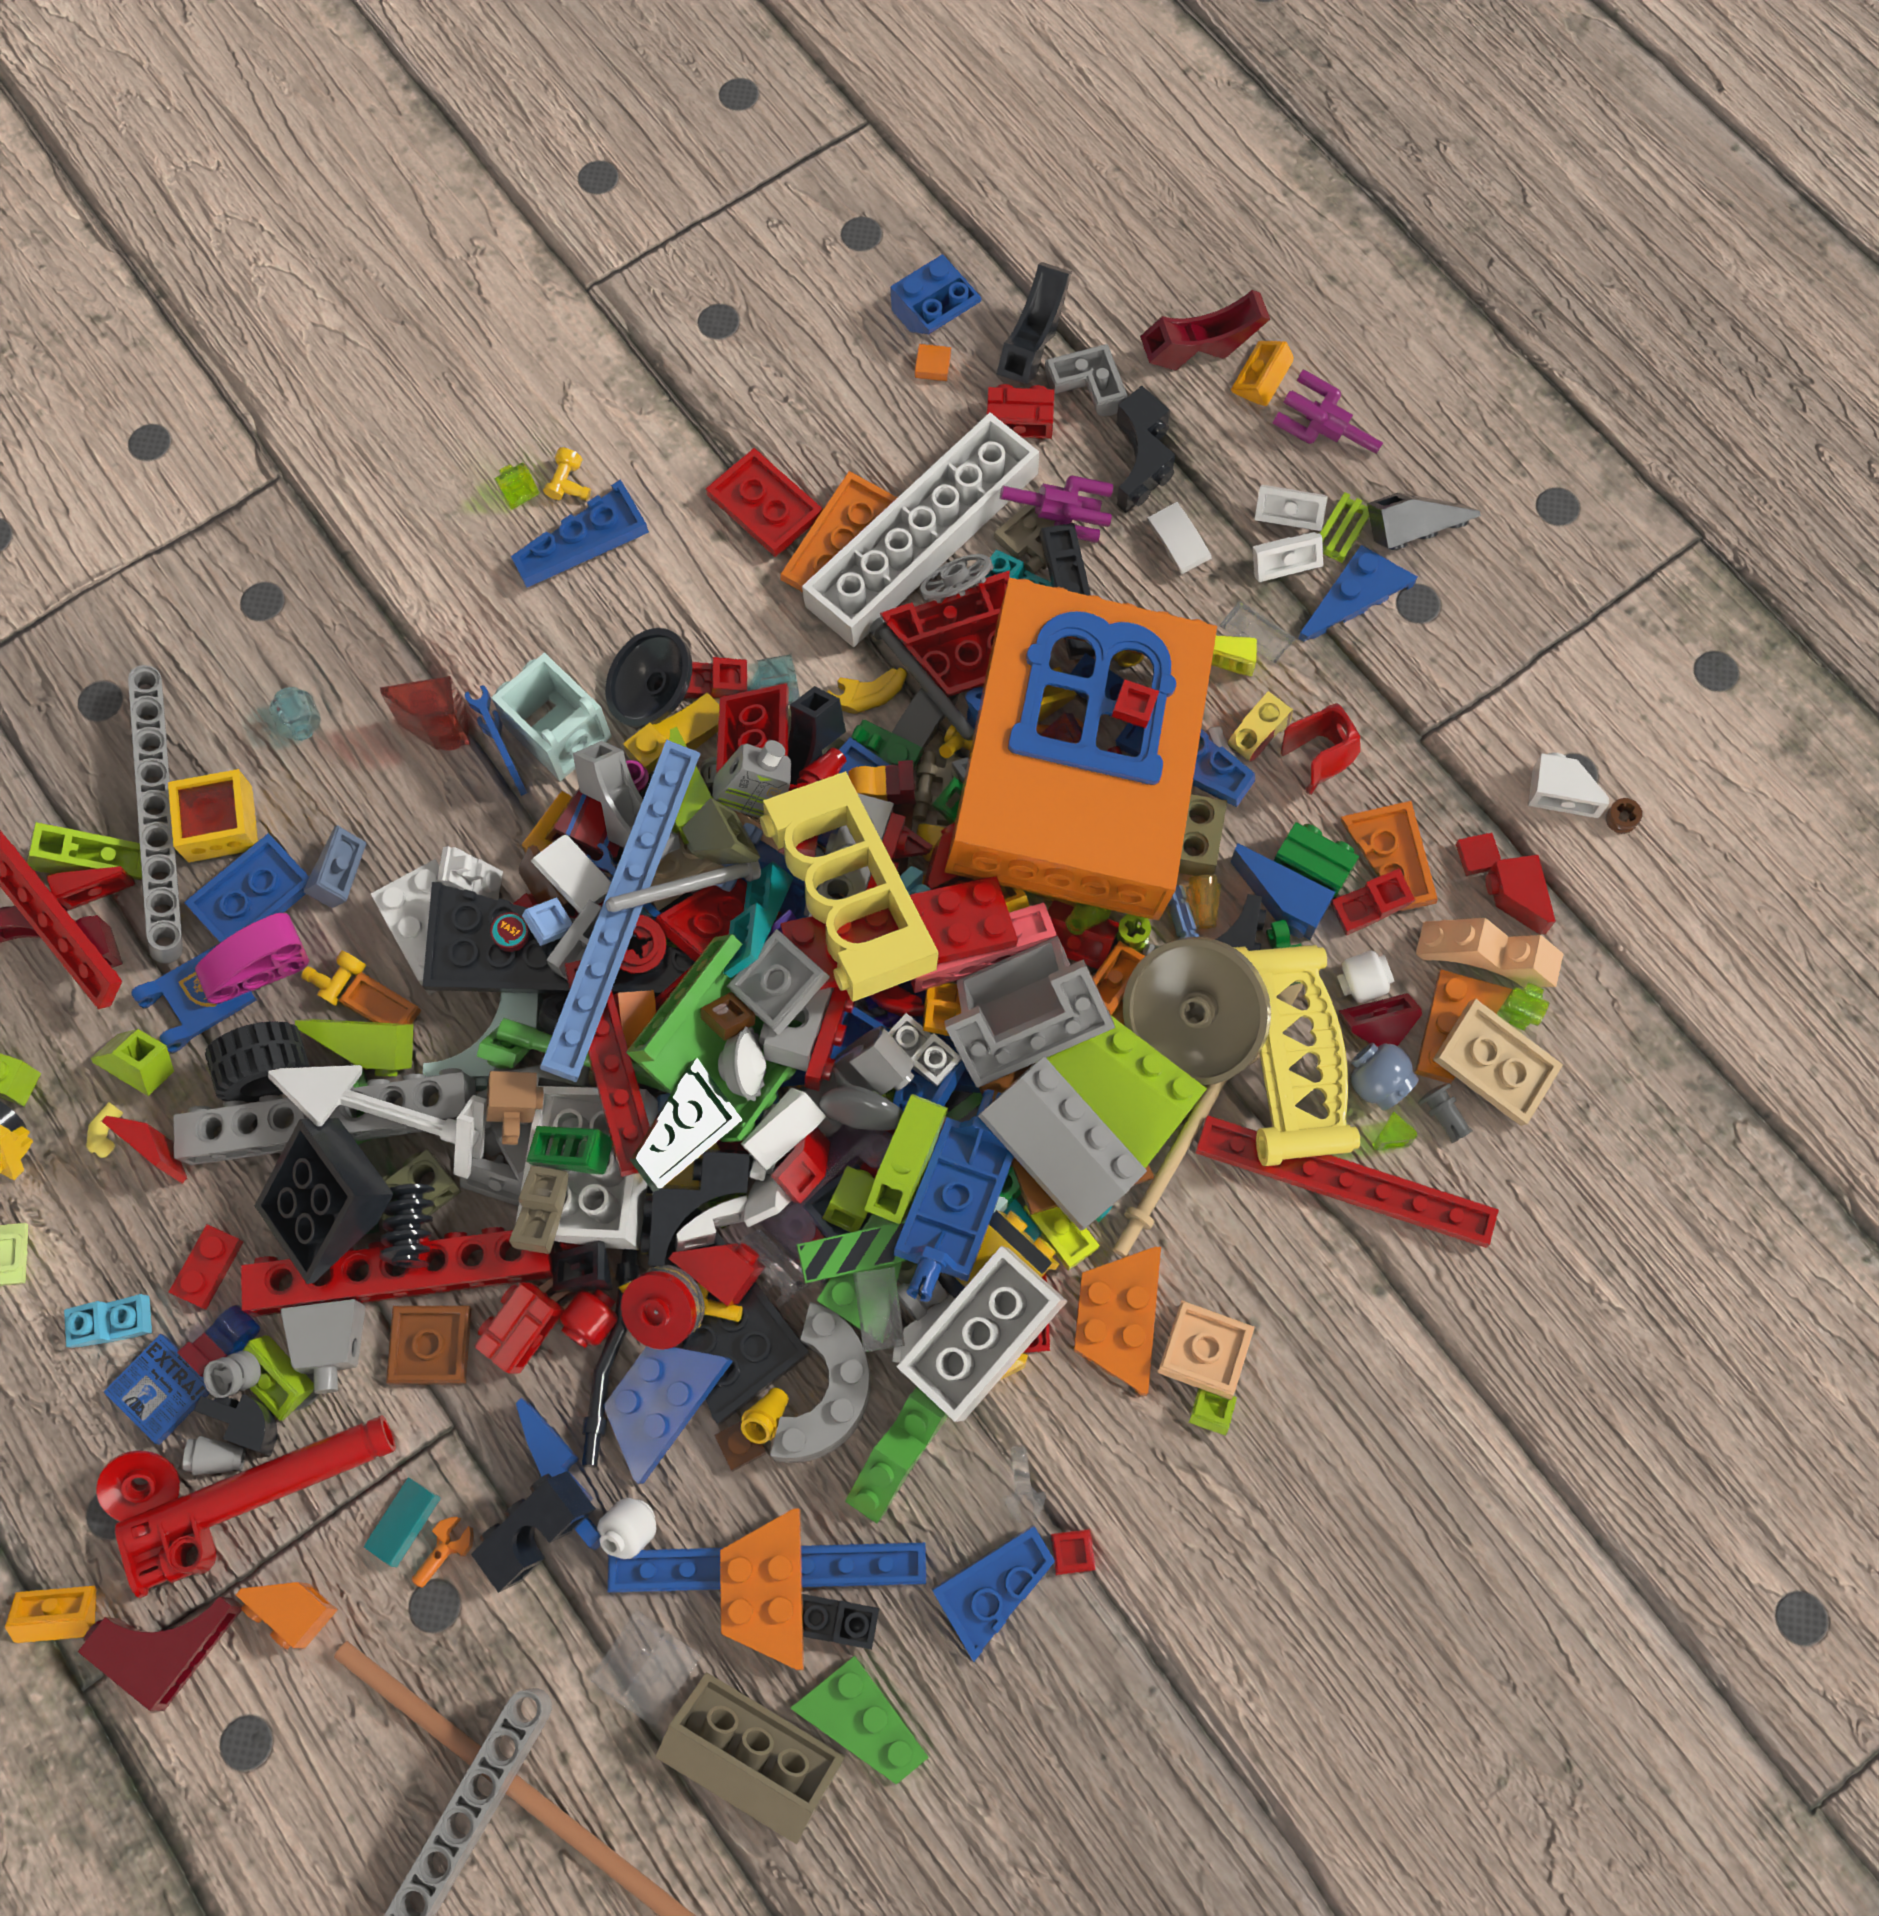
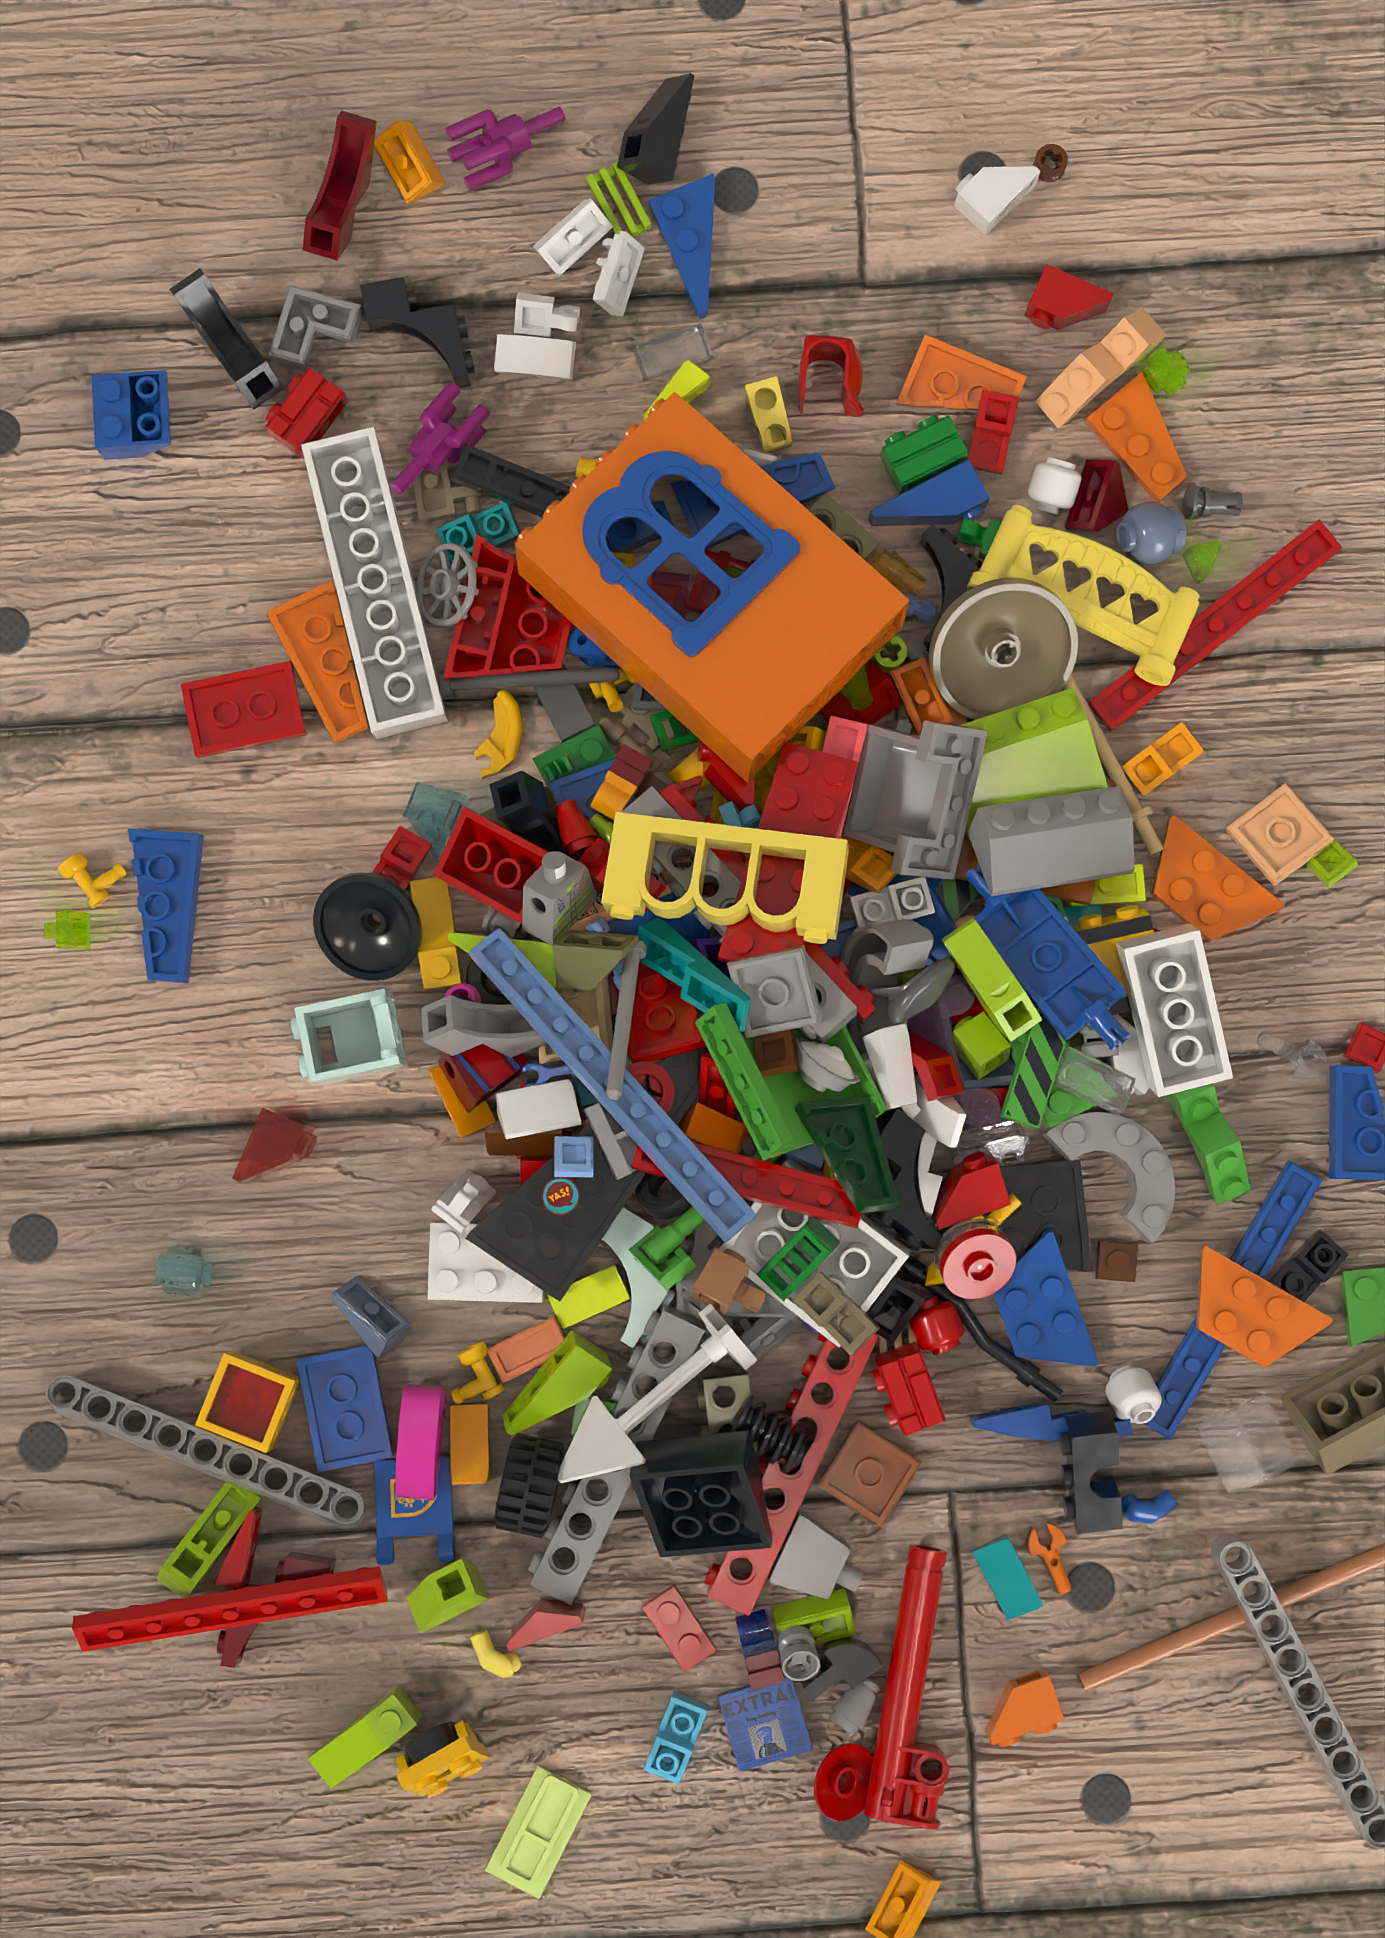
camera: 60 degrees left, 15 degrees up
(159, 1663) = (998, 1841): dark red arch -> none
(275, 1003) = (470, 1444): none -> light orange slope
(449, 1023) = (590, 1296): none -> neon yellow slope
(494, 730) = (315, 1097): blue flag -> none
(529, 1610) = (1146, 1511): none -> blue arm
(762, 1418) = (1113, 1229): yellow cone -> none
(933, 362) = (193, 458): orange tile -> none
(1135, 703) = (715, 517): red tile -> none
(1202, 1210) = (1162, 759): none -> light orange slope
(1212, 523) = (537, 315): none -> white plate
(1477, 853) = (1004, 310): red tile -> none
(1498, 1062) = (1199, 430): tan plate -> none

